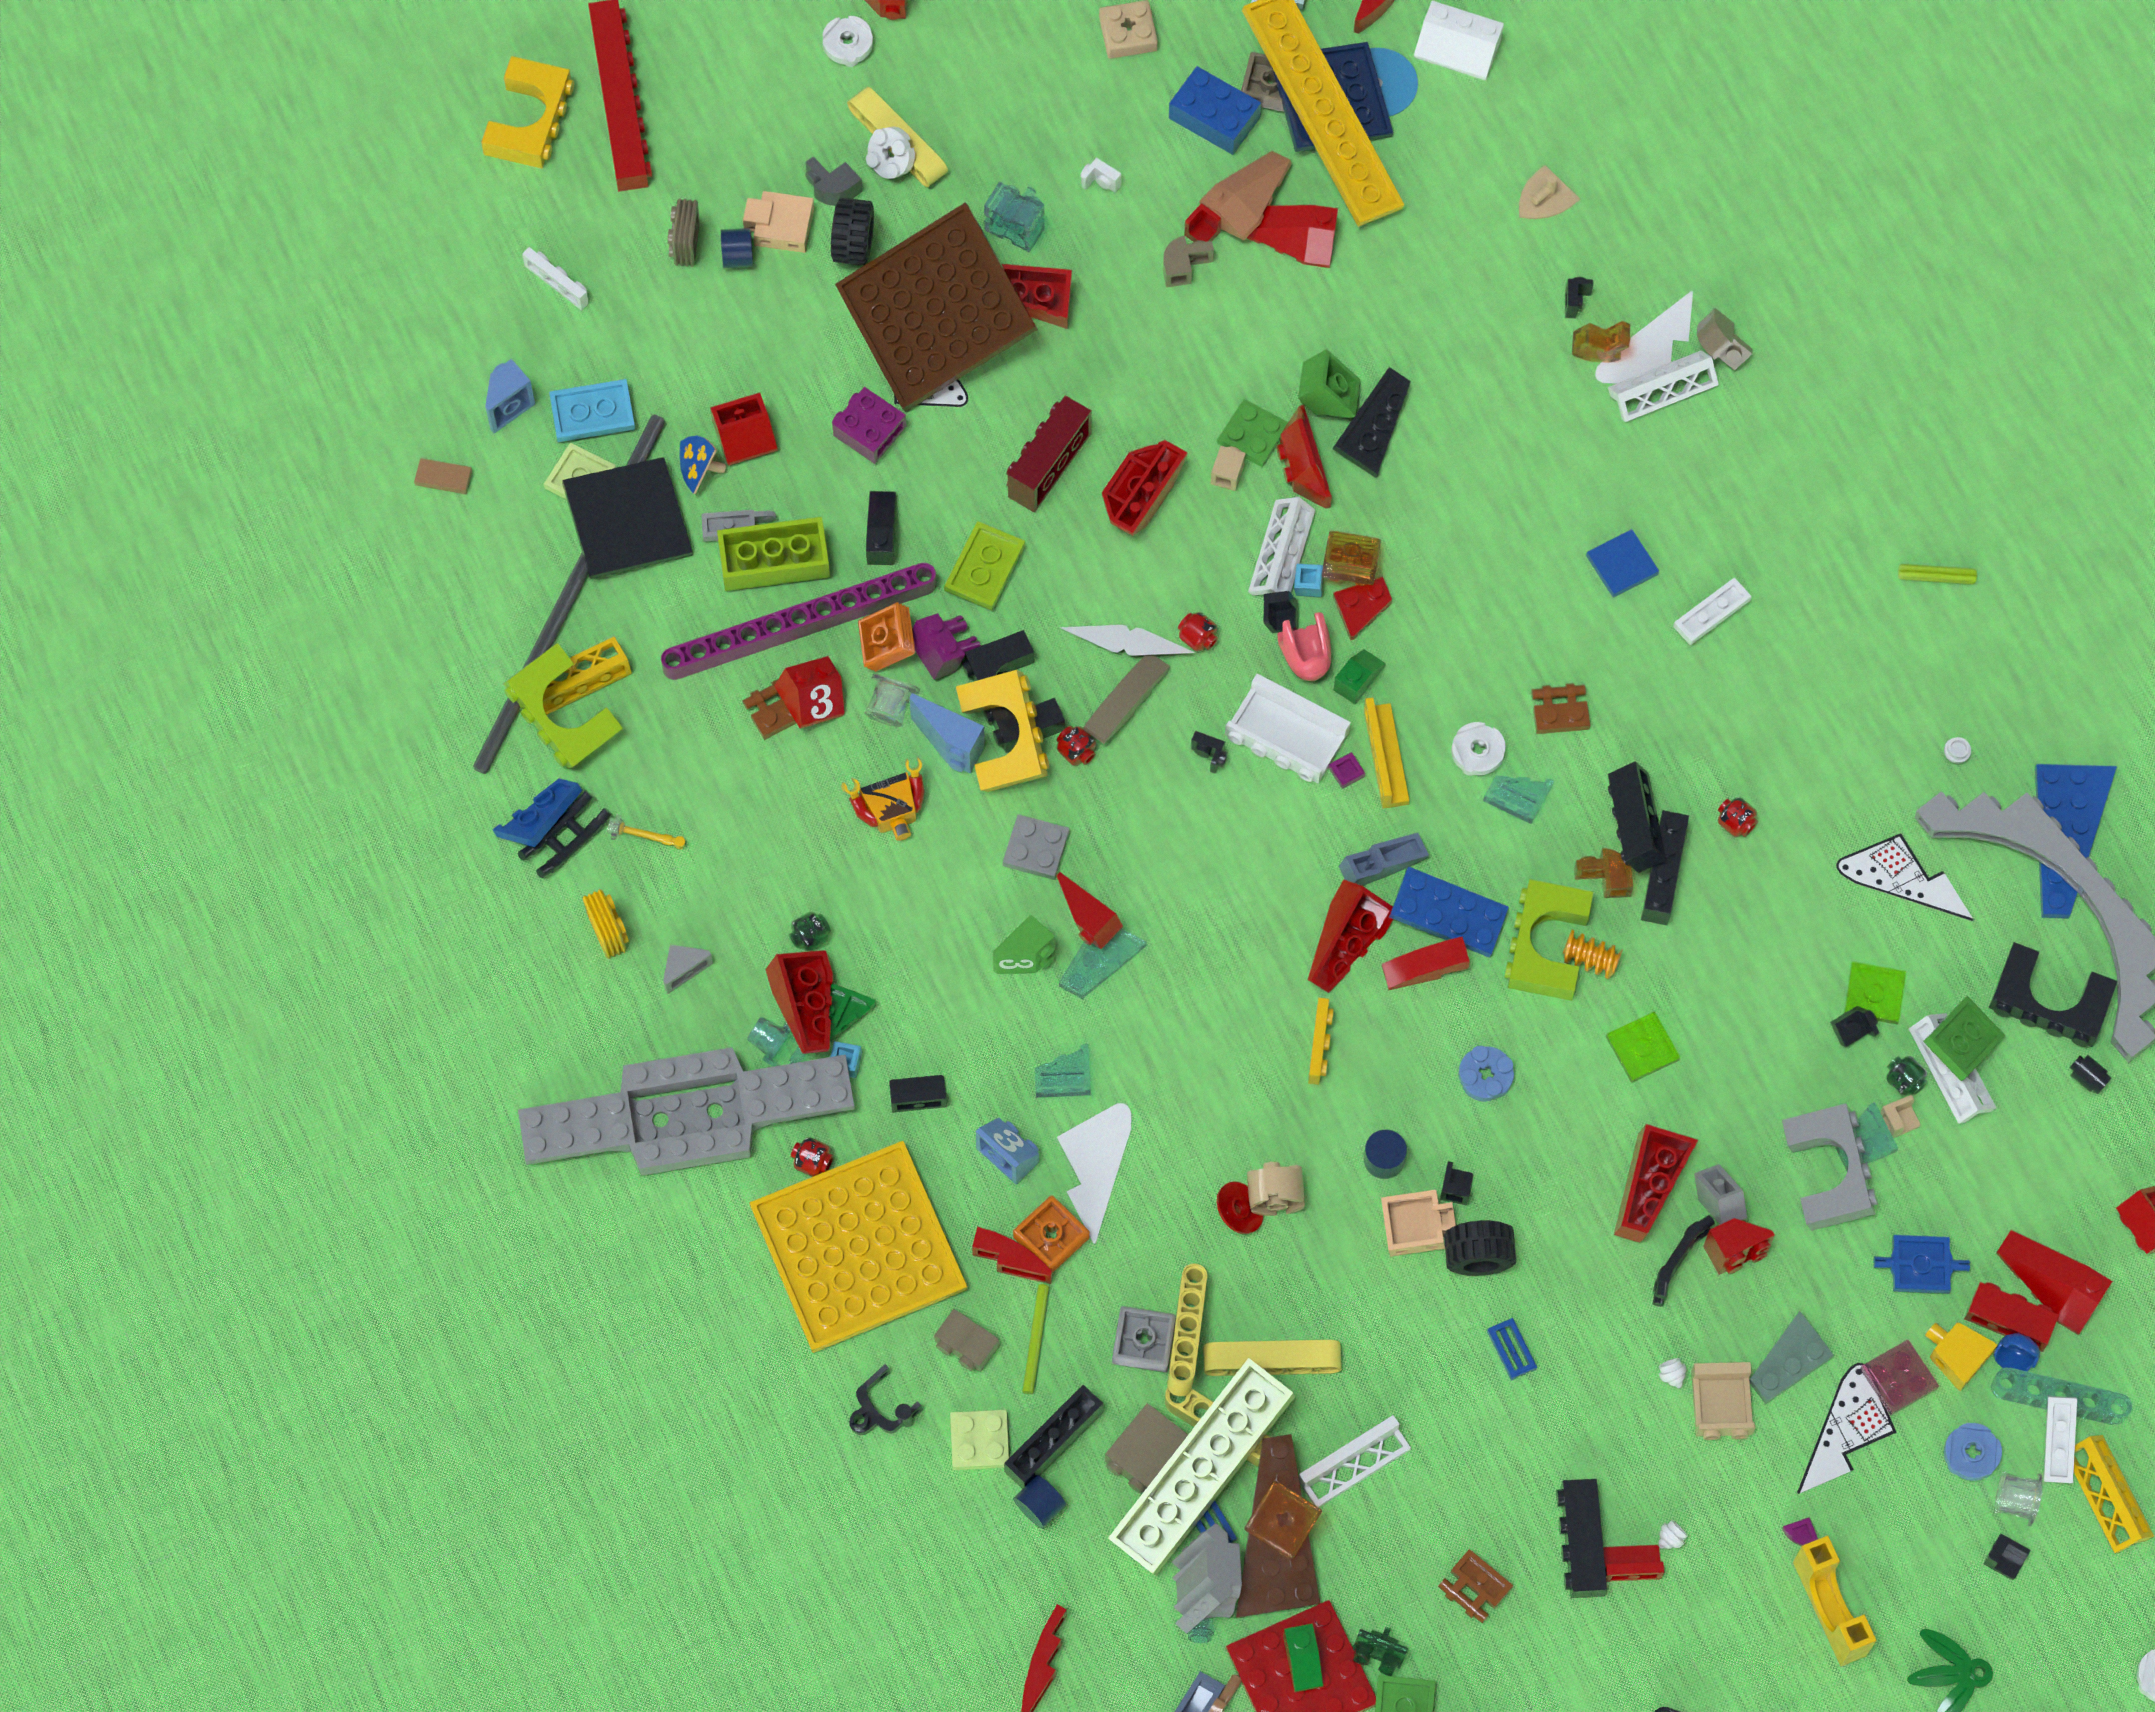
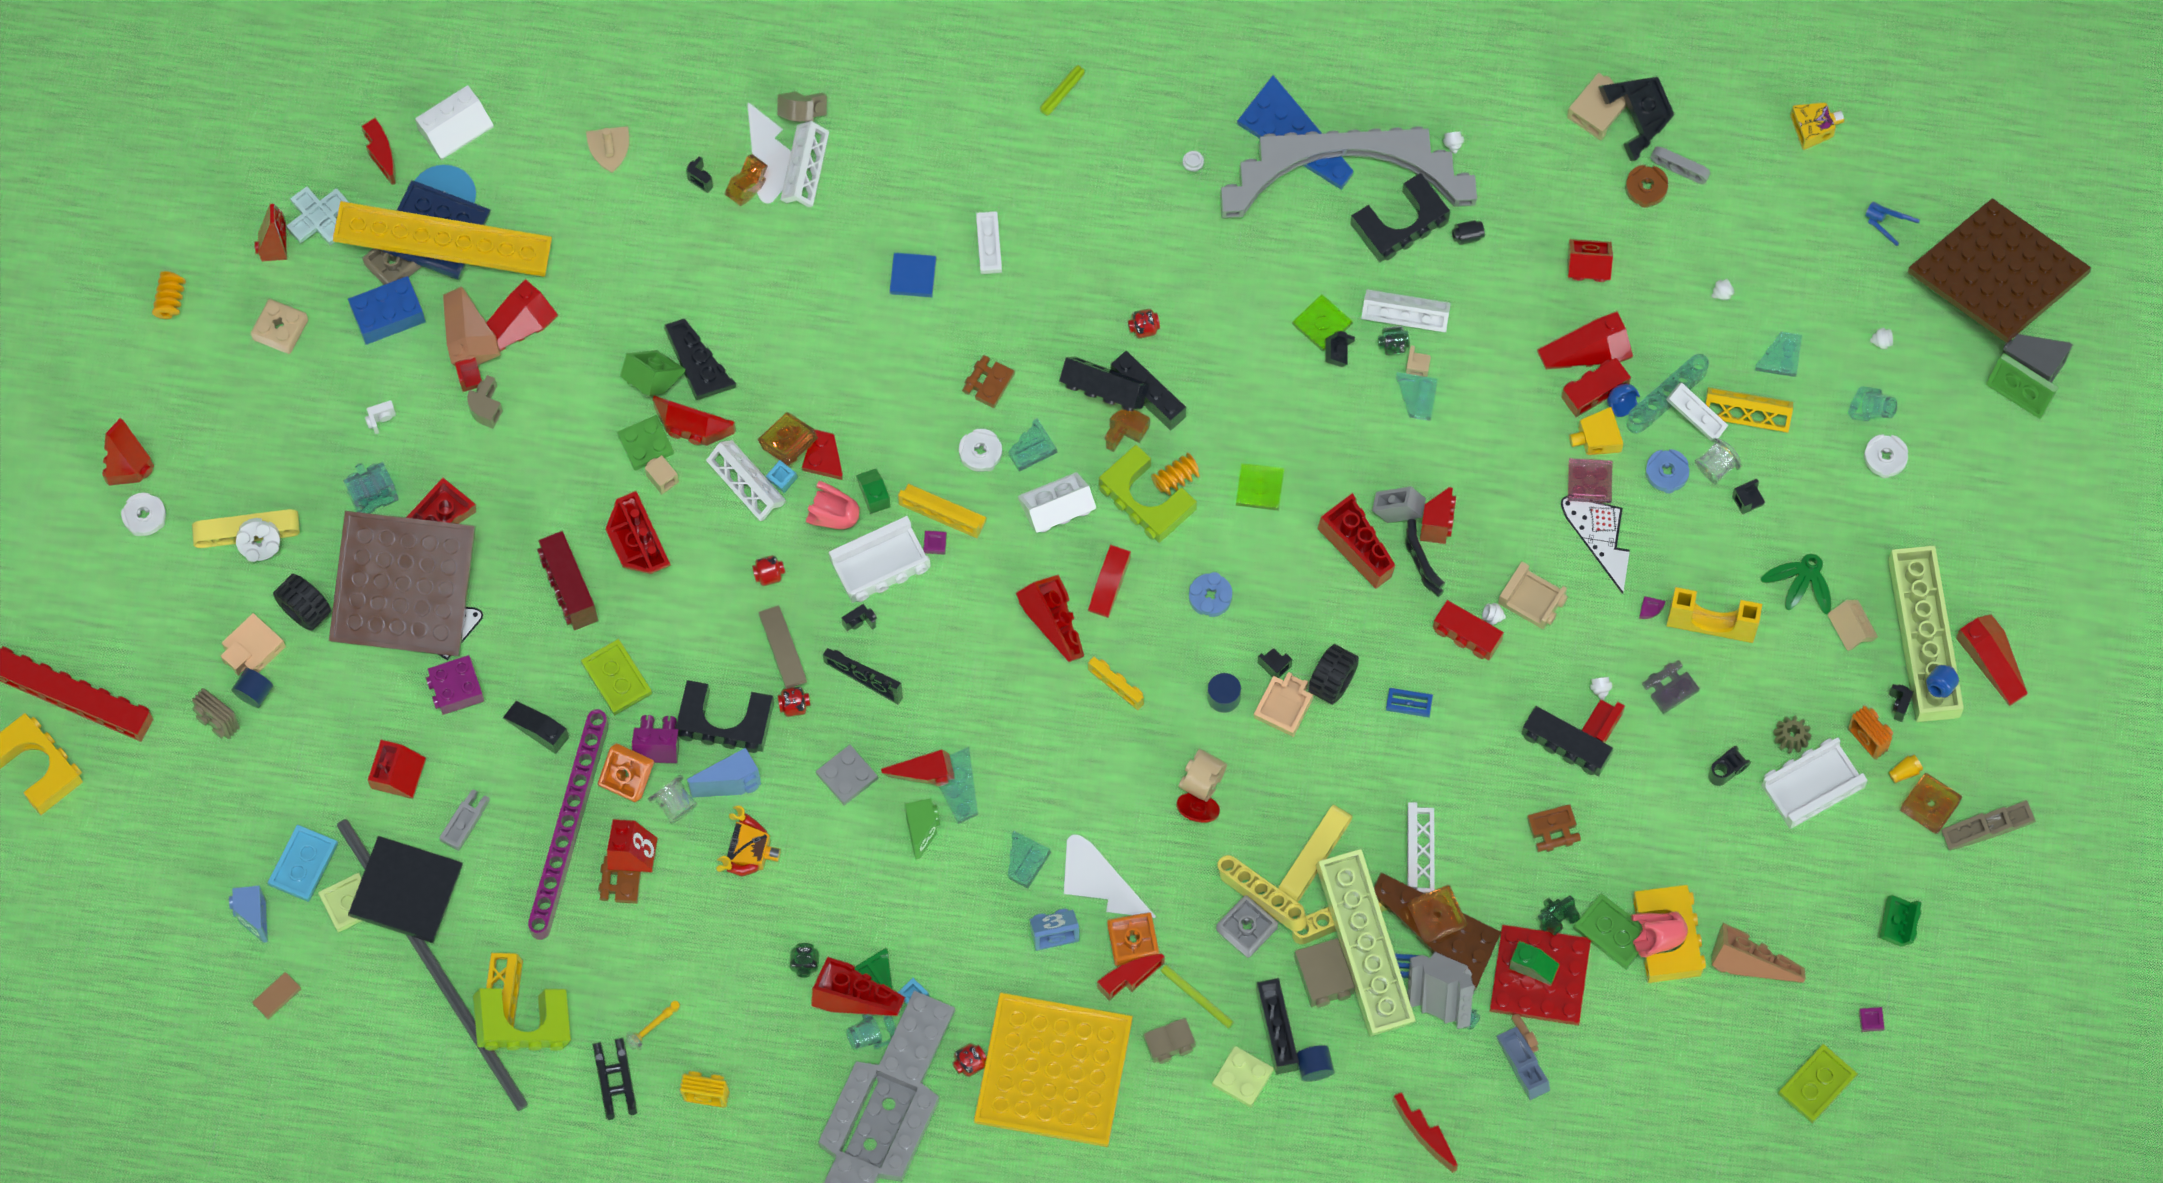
camera: 55 degrees left, 0 degrees up
(535, 821) = (589, 1086): blue wing -> none
(556, 278) = (180, 824): white plate -> none
(683, 965) = (768, 1058): light grey slope -> none
(696, 459) = (396, 815): blue shield -> none
(773, 553) = (507, 808): lime brick -> none
(832, 186) = (253, 593): dark grey brick -> none
(872, 1417) = (1180, 1135): black piece -> none
(917, 1093) = (970, 963): black panel -> none
(1026, 758) = (732, 716): yellow arch -> none
(1133, 642) = (734, 625): white sticker -> none
(1153, 804) = (864, 675): none -> black wing
(1279, 608) = (792, 509): black panel -> none
(1383, 859) = (1016, 560): sand blue slope -> none
(1448, 911) = (1082, 543): blue plate -> none
(1474, 858) = (1057, 502): none -> white slope
(1633, 1357) = (1467, 630): none -> red brick
(1721, 1617) = (1673, 693): none -> plate
(1790, 1360) = (1533, 538): sand green wing -> none
(1852, 1197) = (1403, 404): light grey arch -> none
(1896, 871) = (1246, 255): white sticker -> none
(1921, 1264) = (1524, 417): blue plate -> none
(1964, 1038) = (1395, 288): bright green plate -> none

